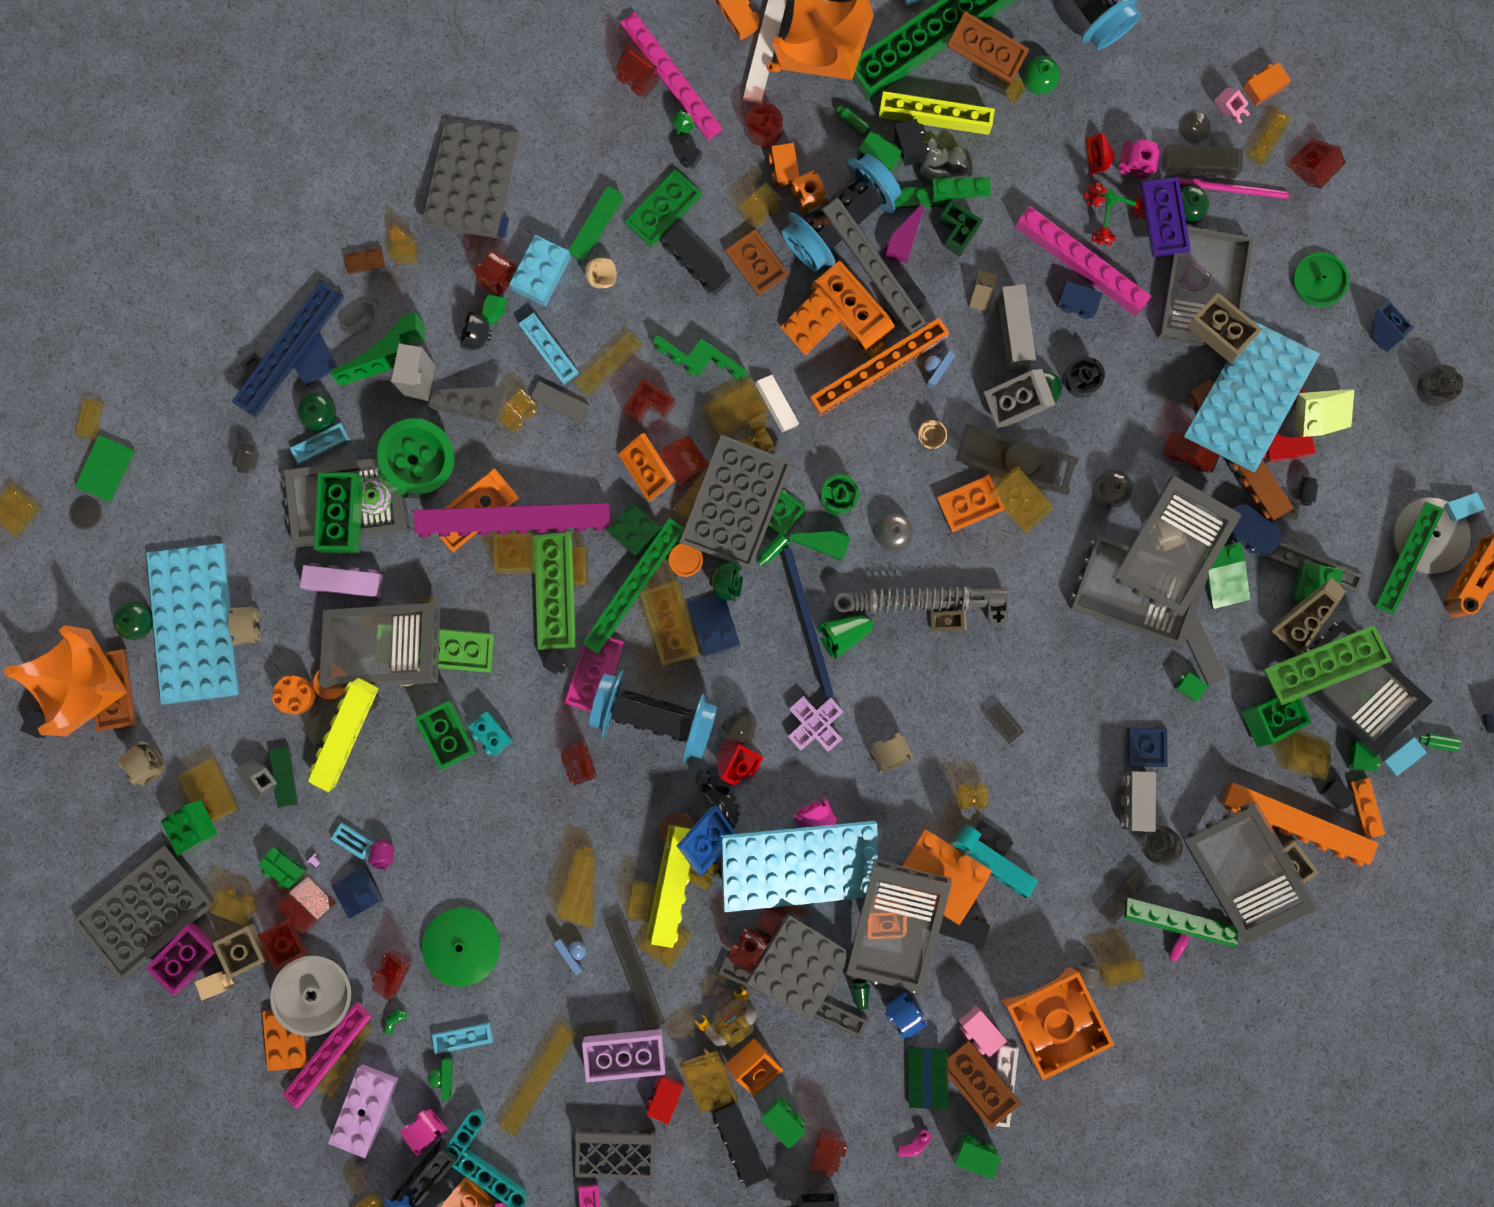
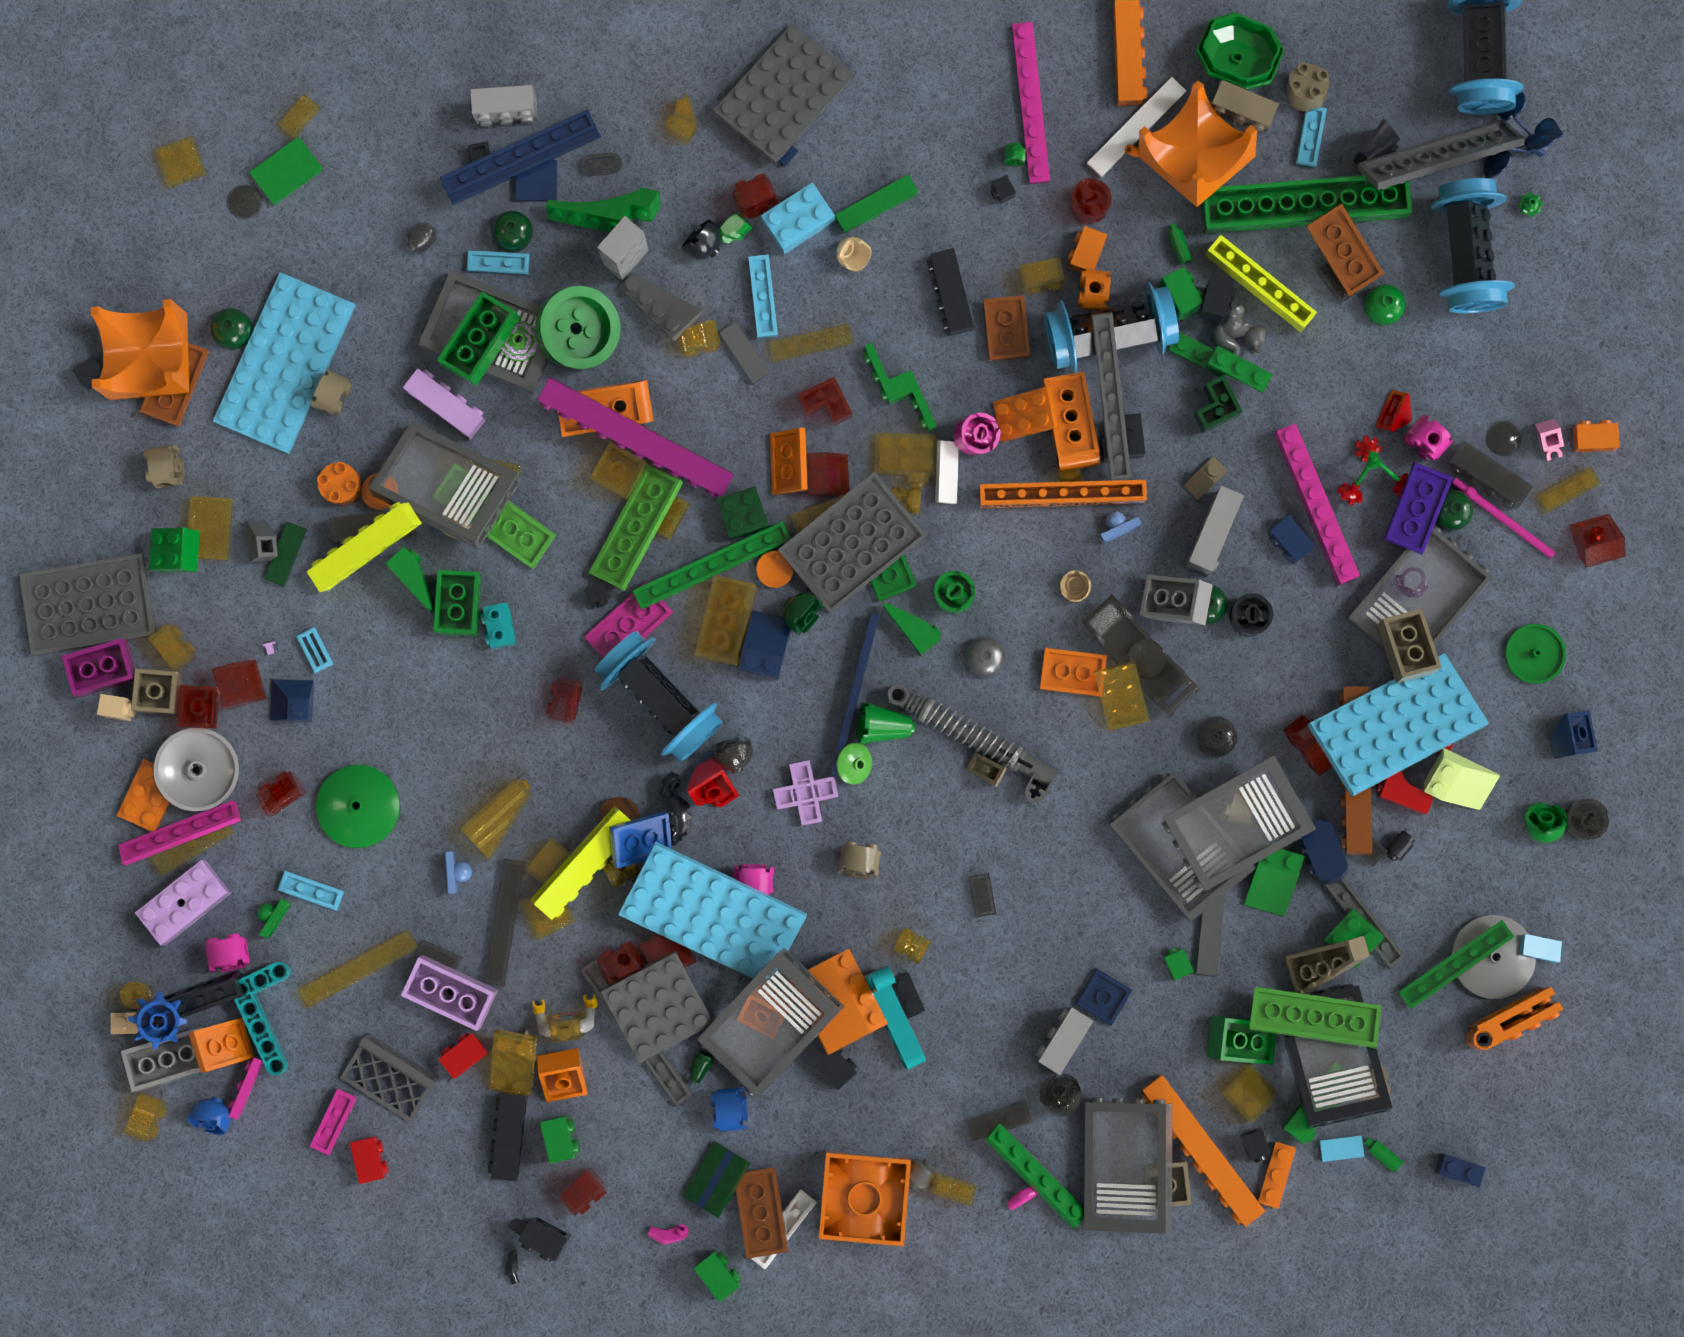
camera: 30 degrees right, 0 degrees up
(250, 314) = (504, 105): none -> light grey brick
(281, 868) = (236, 638): green brick -> none
(364, 260) = (639, 113): reddish brown plate -> none
(381, 854) = (334, 678): magenta head -> none
(393, 1018) = (258, 835): green arm -> none
(395, 733) = (409, 570): none -> green slope
(636, 72) = (998, 81): clear red slope -> none
(663, 208) = (949, 224): green tile -> none
(773, 548) = (862, 606): green cylinder -> none
(783, 359) = (976, 434): none -> dark pink brick
(840, 678) = (847, 763): none -> bright green dish
(901, 241) = (1158, 385): magenta slope -> none
(978, 1027) = (791, 1165): bright pink brick -> none
(1015, 90) = (1350, 305): clear yellow tile -> none
(1410, 405) = (1545, 822): none -> green cylinder

